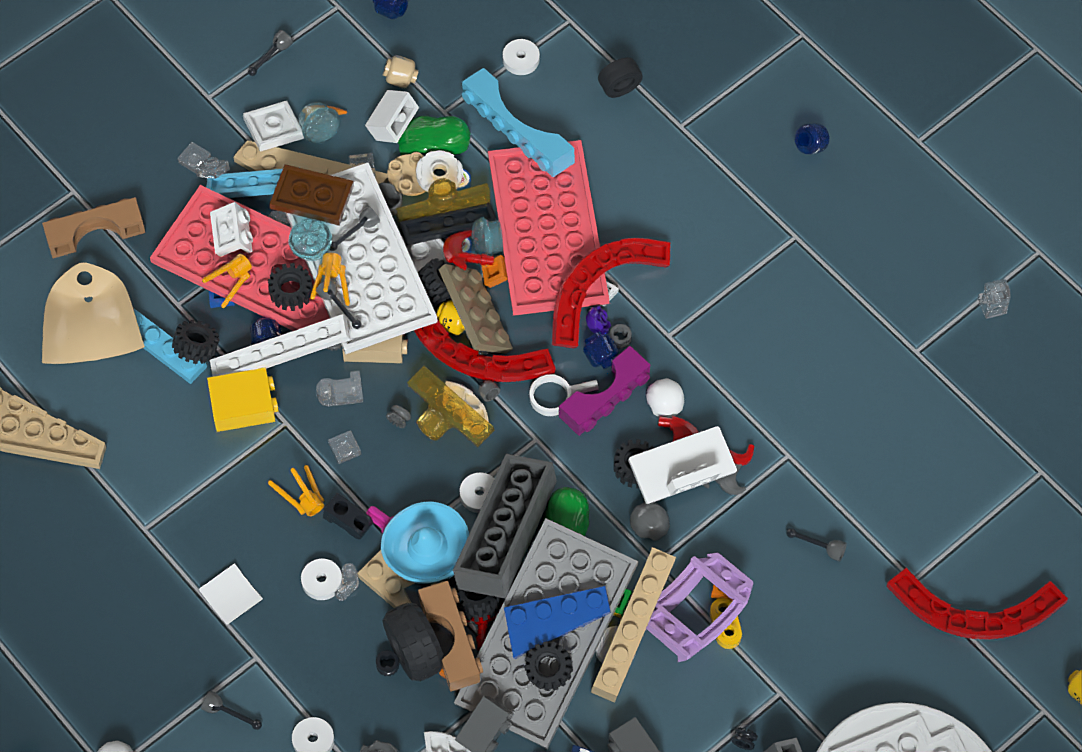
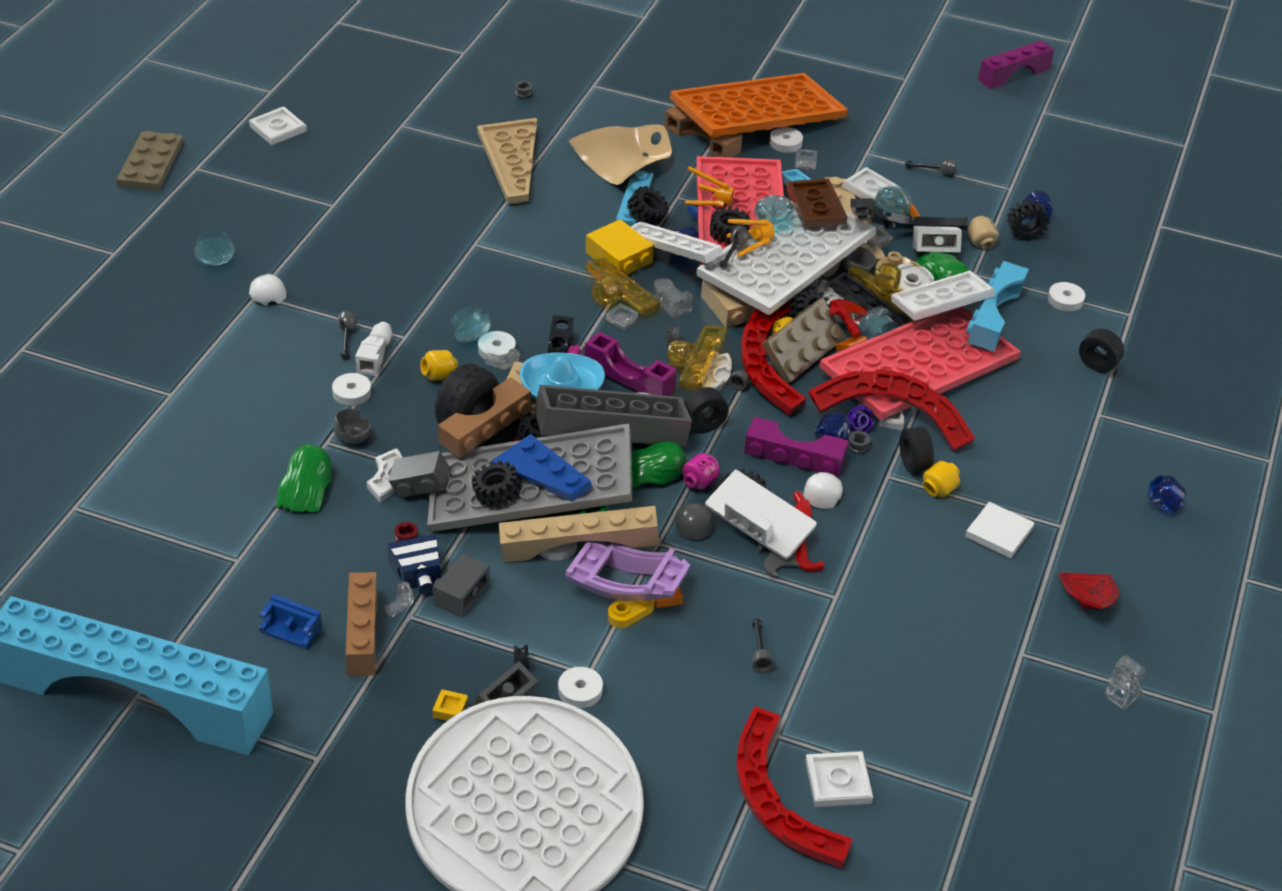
camera: 60 degrees right, 20 degrees down
(90, 155) = (758, 104): none -> orange plate
(150, 166) = (786, 139): none -> white piece
(212, 168) = (804, 167): clear plate -> none
(230, 594) = (449, 302): white sticker -> none
(231, 229) = (754, 182): white bracket -> none
(270, 693) = (372, 350): none -> white piece
(289, 589) = (470, 323): none -> clear light blue piece
(300, 428) = (614, 285): none -> clear yellow plate
(310, 501) = (561, 310): light orange plant -> none
(329, 644) = (438, 364): none -> yellow head
(344, 150) = (867, 210): none -> black plate
(367, 218) = (822, 237): hinge -> none
(409, 487) = (655, 379): none -> magenta arch
(412, 25) = (1030, 229): none -> black tyre
(491, 162) = (942, 295): none -> white tile
(525, 438) = (711, 418): none -> black tyre
(582, 387) = (777, 410): white piece -> none
(598, 485) = (701, 471): none -> dark pink head
(665, 297) = (916, 449): none -> black tyre
(705, 297) = (941, 479): none -> yellow head
(779, 287) = (999, 529): none -> white tile
(795, 695) = (580, 677): none -> white piece
(884, 260) = (1092, 590): none -> red shield
(981, 558) = (839, 779): none -> white tile

